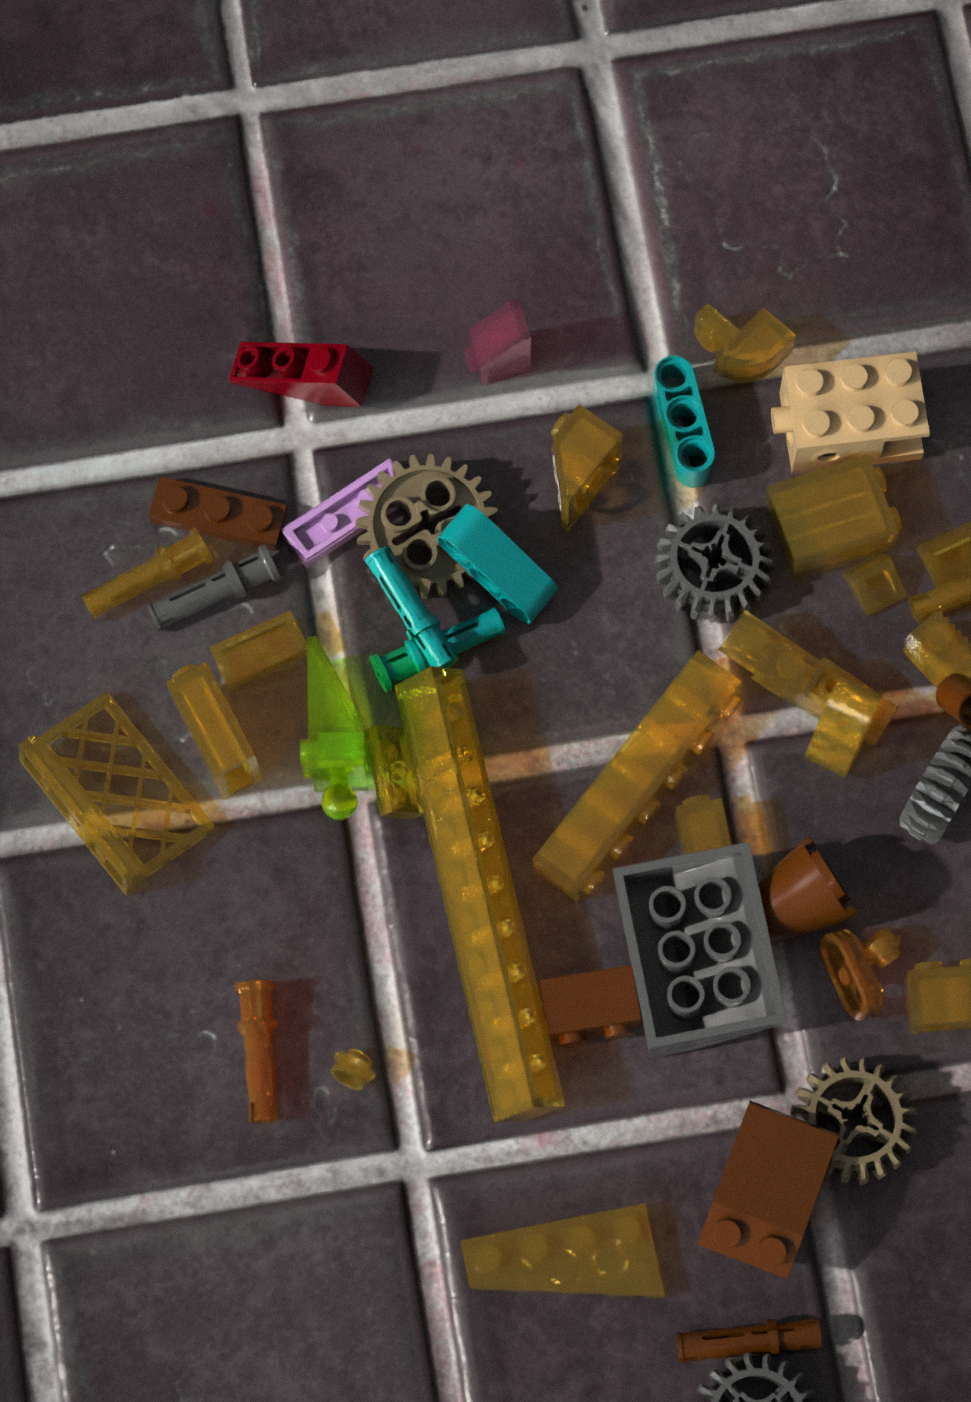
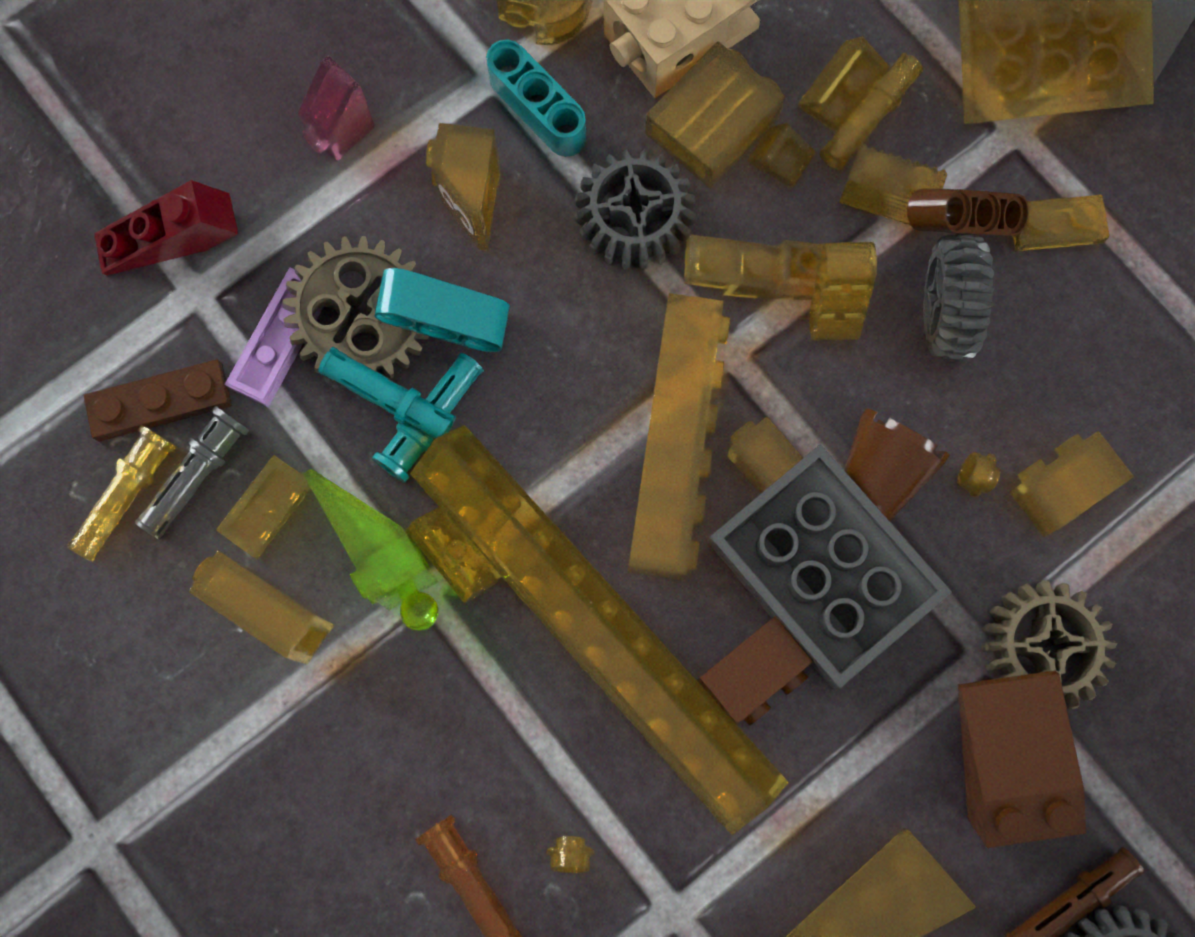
camera: 30 degrees left, 5 degrees up
(84, 815) = (185, 754): clear yellow fence -> none
(851, 974) = (969, 512): clear orange plate -> none

